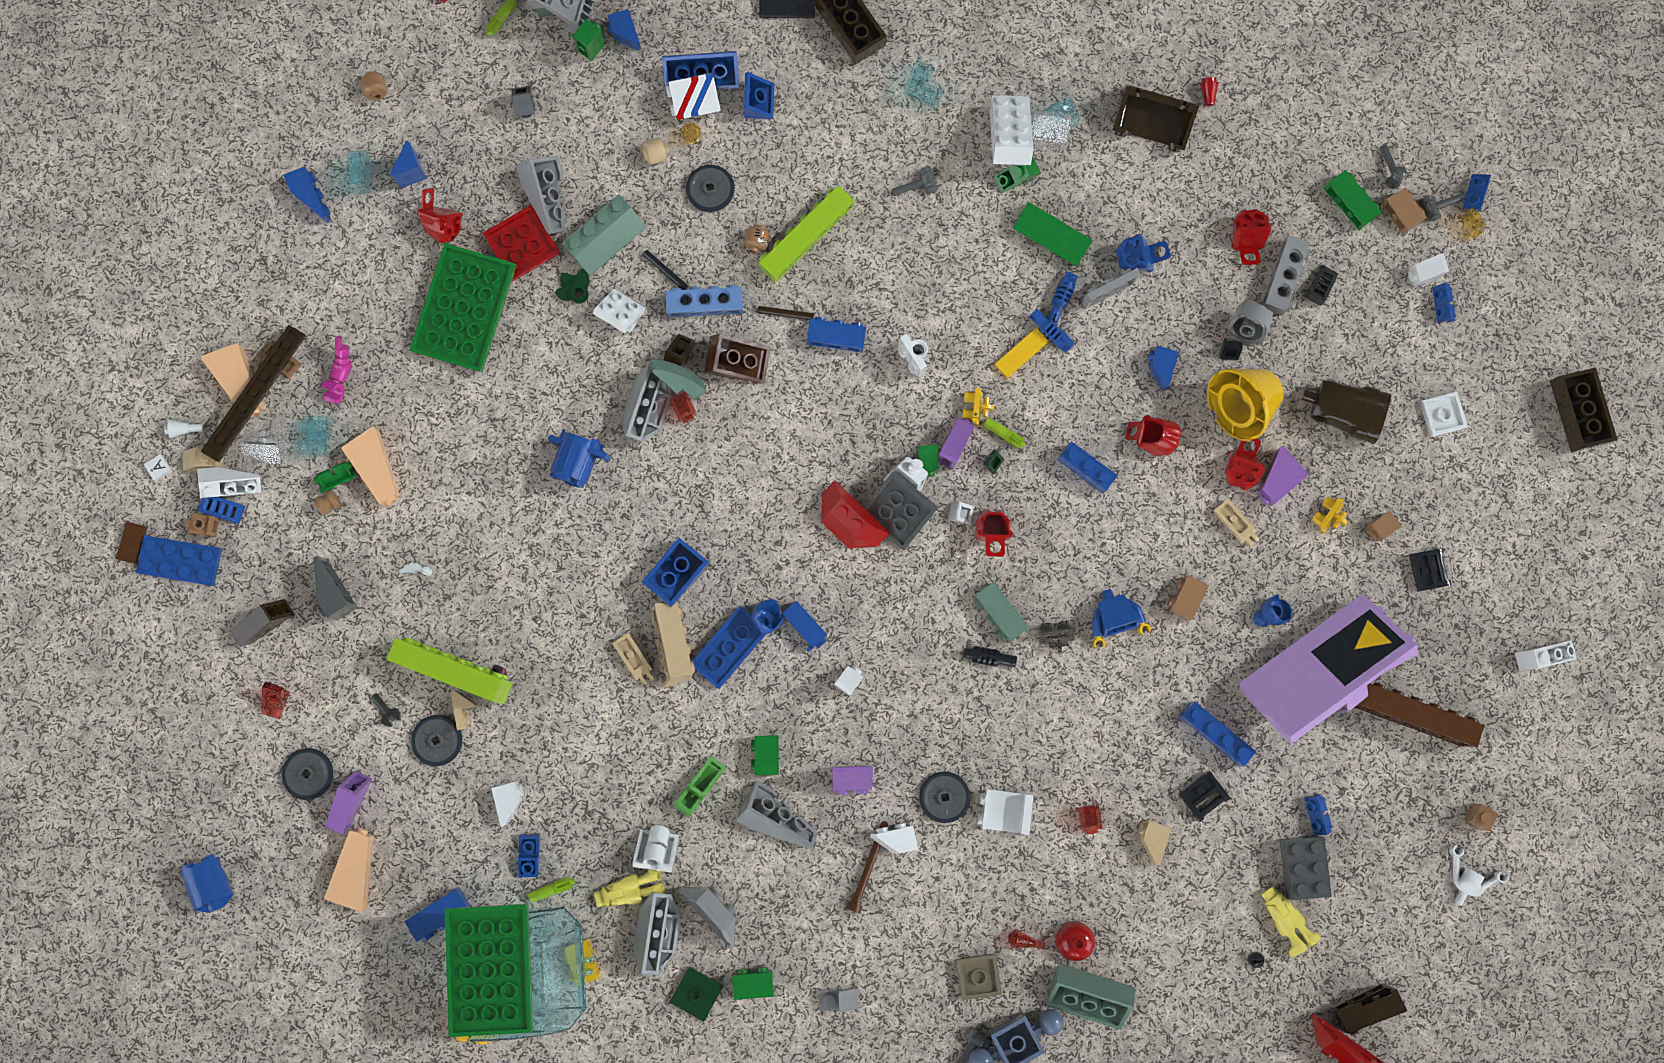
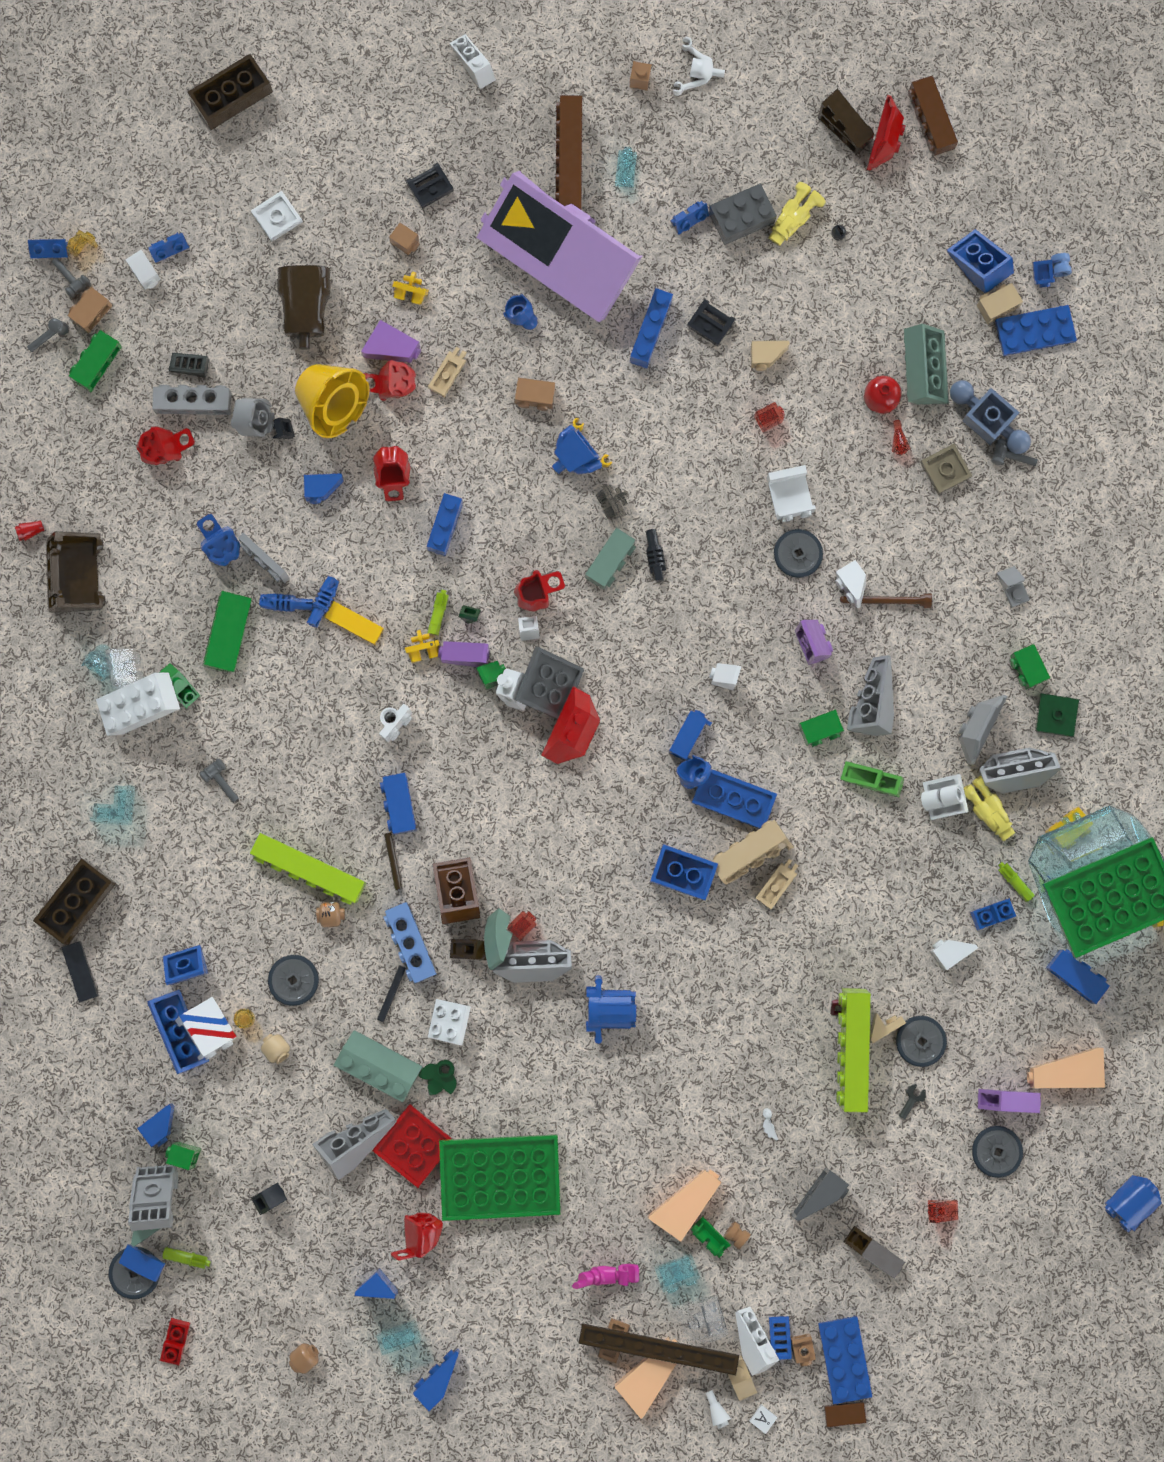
camera: 105 degrees left, 0 degrees up
(1389, 769) = (626, 168): none -> clear light blue hinge

